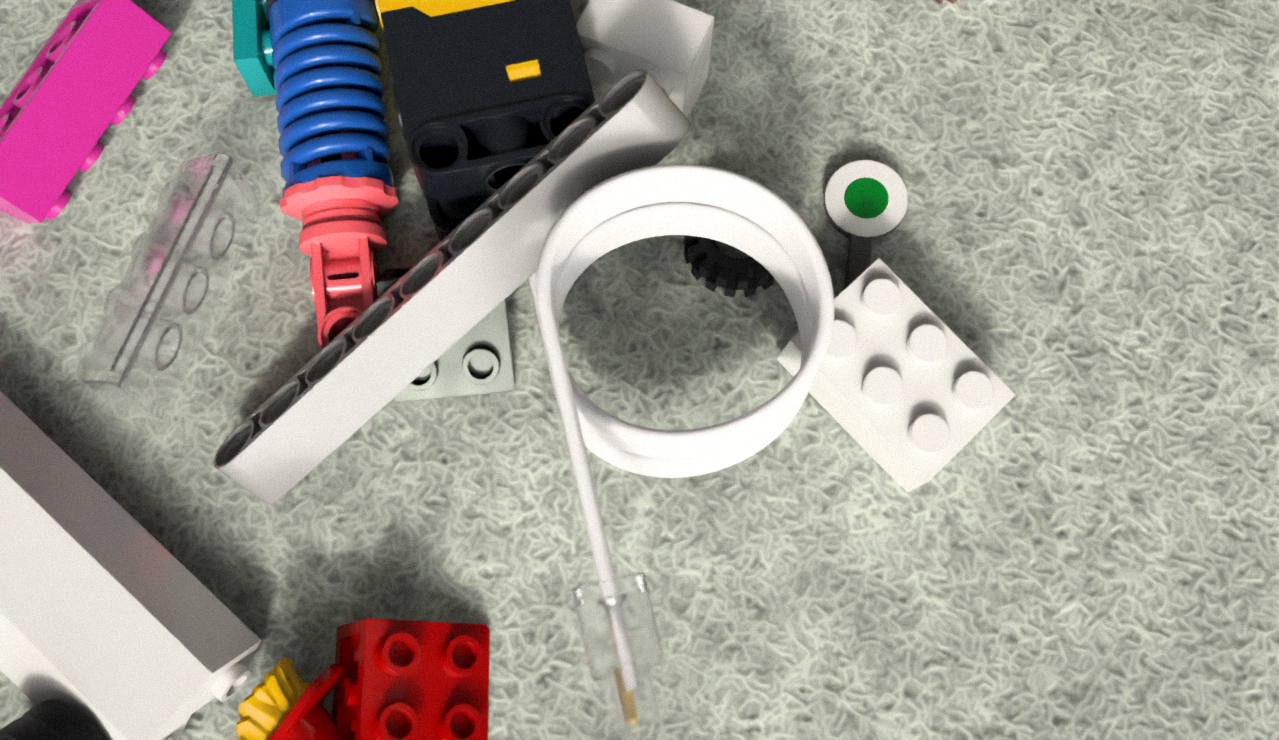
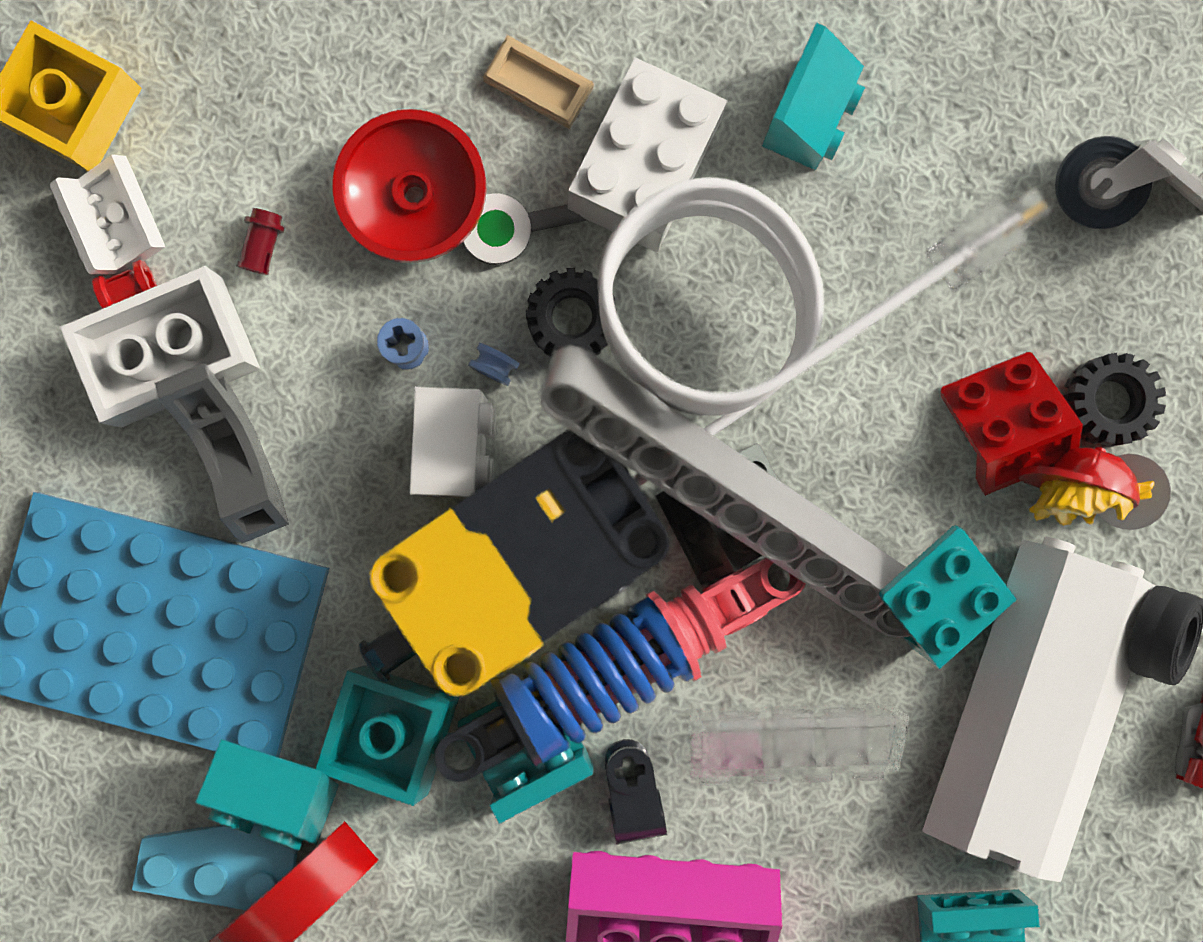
camera: 110 degrees left, 15 degrees up
(201, 115) = (634, 799): none -> black piece
(232, 506) = (946, 597): none -> teal bracket
(715, 141) = (493, 364): none -> medium blue bush
(785, 59) = (389, 336): none -> medium blue bush
(898, 594) = (815, 101): none -> teal slope
(945, 88) = (401, 153): none -> red dish
(1020, 305) = (538, 82): none -> tan tile

